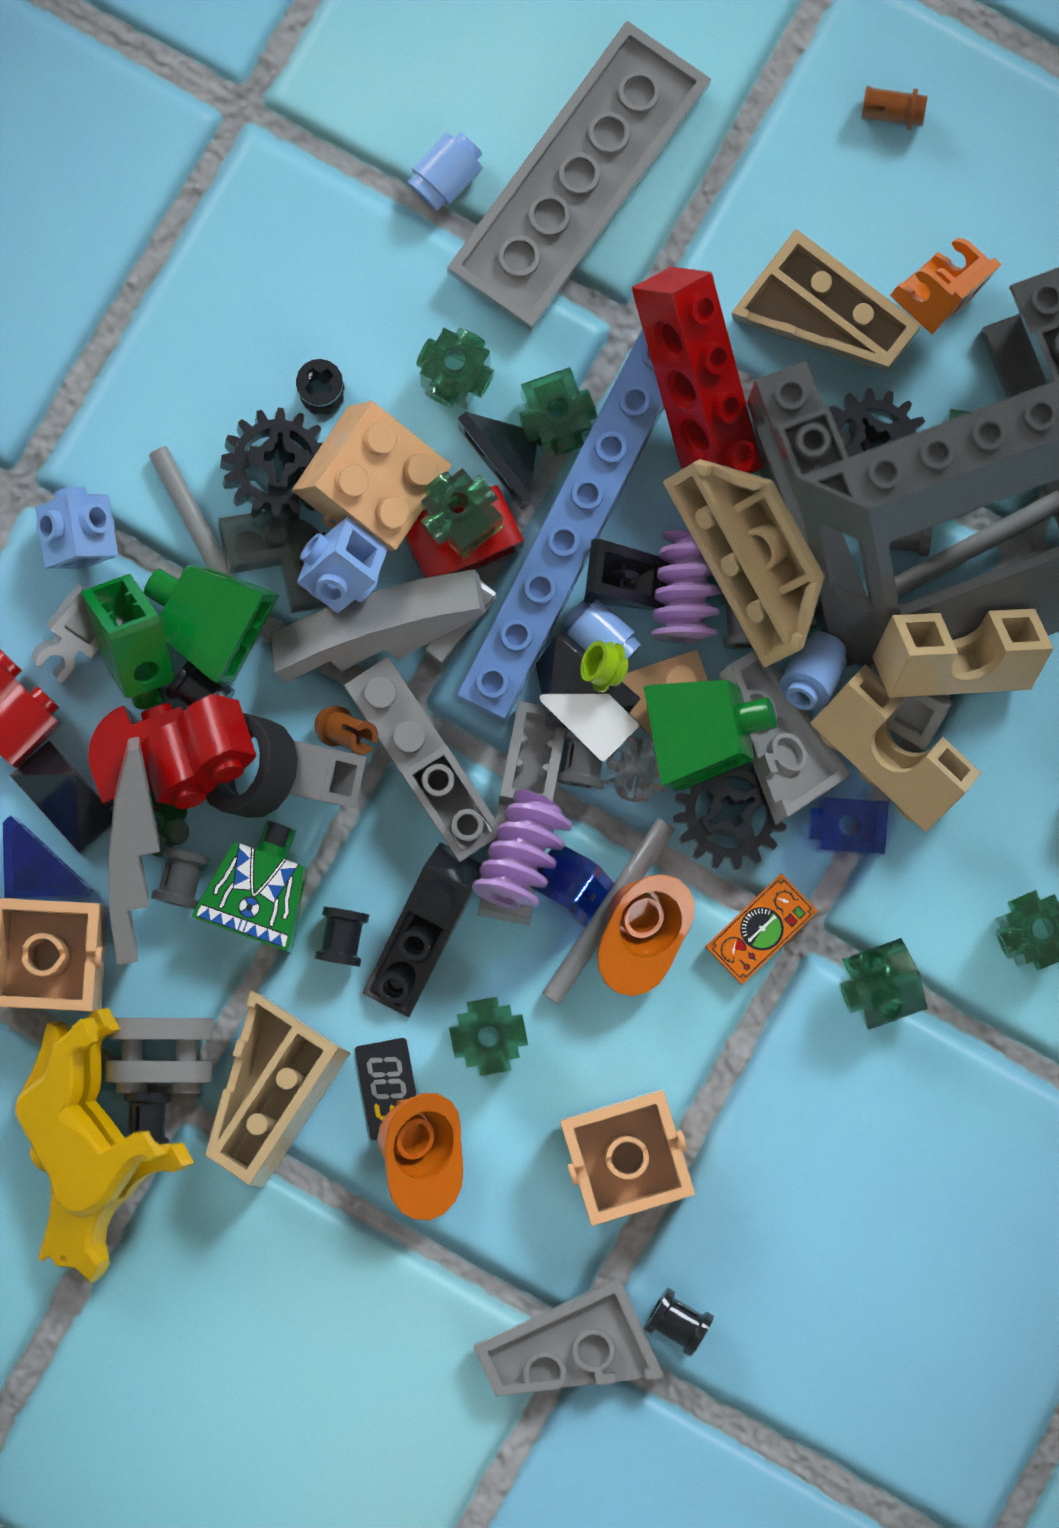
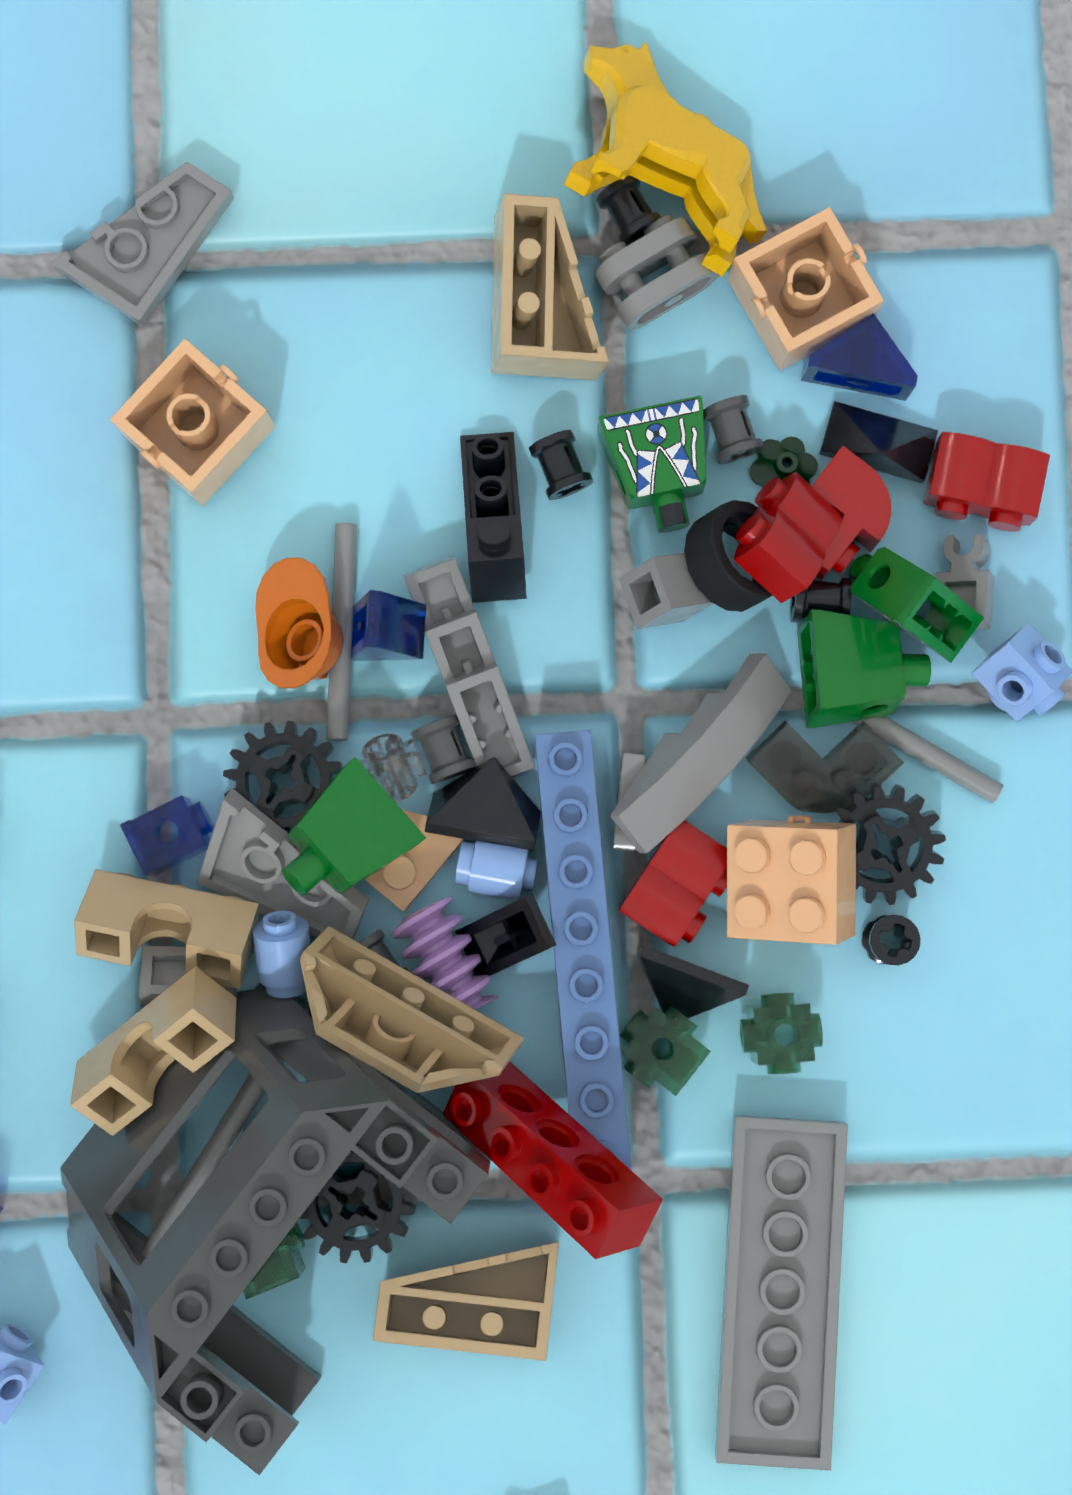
camera: 150 degrees right, 0 degrees up
(131, 835) = (794, 423): light grey slope -> none
(338, 727) = (679, 644): dark orange pin -> none
(340, 575) = (767, 780): light blue brick -> none
(384, 1078) = (440, 366): black sticker -> none
(422, 1155) = (373, 318): orange piece -> none
(423, 759) = (584, 659): light grey slope -> none
(445, 170) = (906, 1217): light blue brick -> none
(461, 530) = (669, 888): clear green brick -> none
(466, 1040) = (376, 435): clear green brick -> none
(521, 851) = (443, 623): lavender piece -> none
(593, 719) = (455, 785): white sticker -> none
(604, 665) = (474, 836): lime plate -> none
(678, 1322) = (66, 317): black bush -> none
(761, 929) = (196, 698): tile -> none
(883, 984) = (55, 709): clear green brick -> none
(942, 288) = (376, 1394): orange hinge -> none

